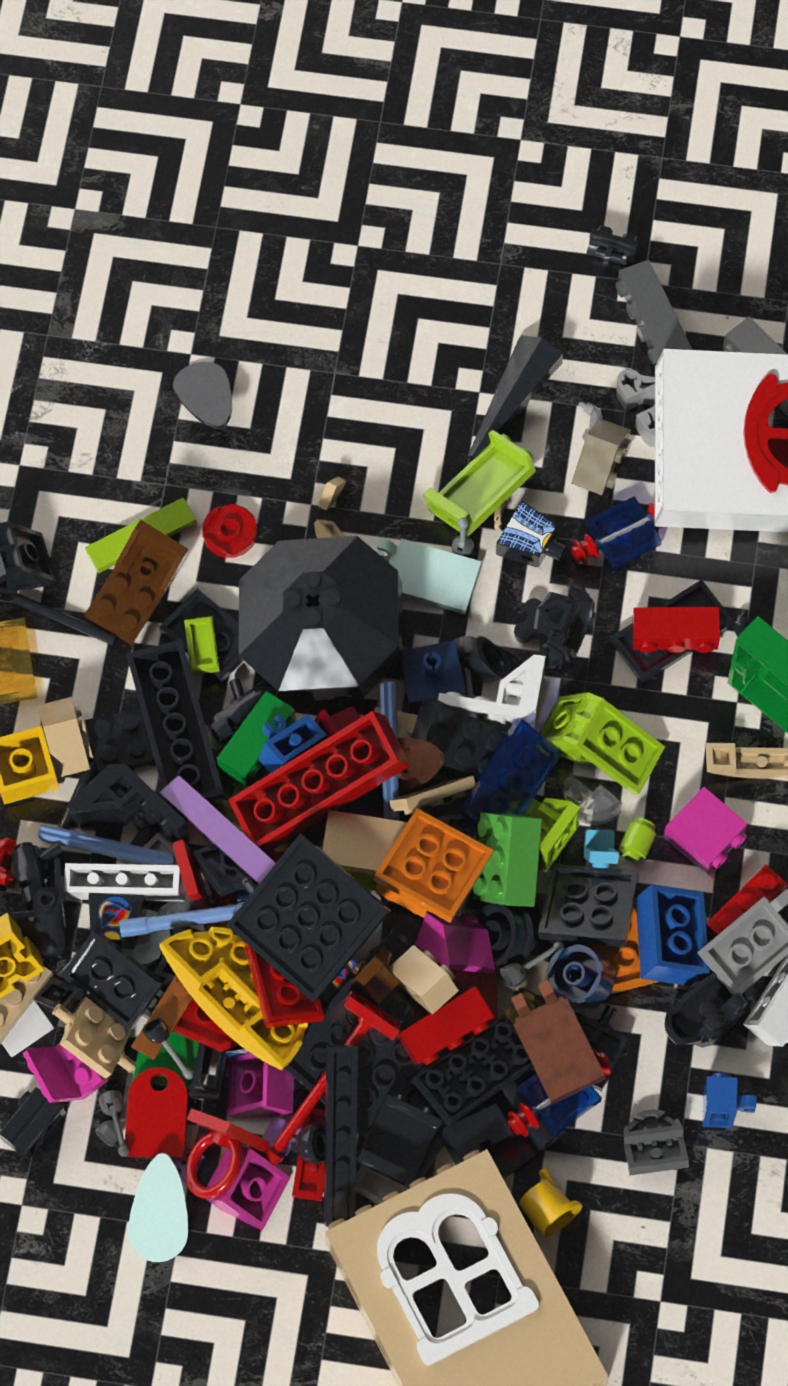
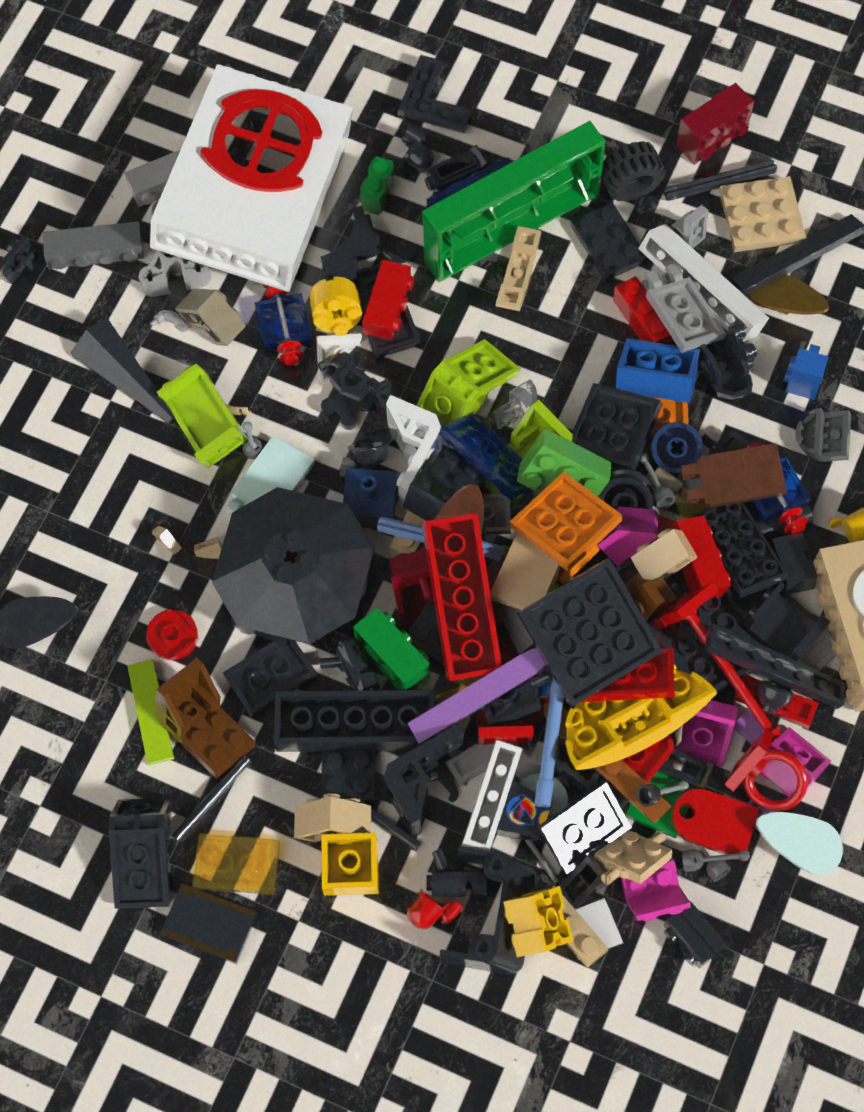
camera: 75 degrees left, 0 degrees up
(104, 846) = (448, 809): medium blue axle -> none
(201, 645) = (280, 678): lime tile -> none
(289, 742) = (413, 616): blue brick -> none
(432, 795) = (494, 524): tan plate -> none
(529, 537) = (264, 391): torso -> none
(600, 848) = (565, 409): medium azure bracket -> none
(609, 595) = (333, 344): none -> white tile
(637, 840) = (562, 379): lime brick -> none
(649, 576) = (335, 305): none -> yellow brick
(706, 831) = (568, 327): dark pink piece -> none
(742, 584) = (358, 246): none -> black arch

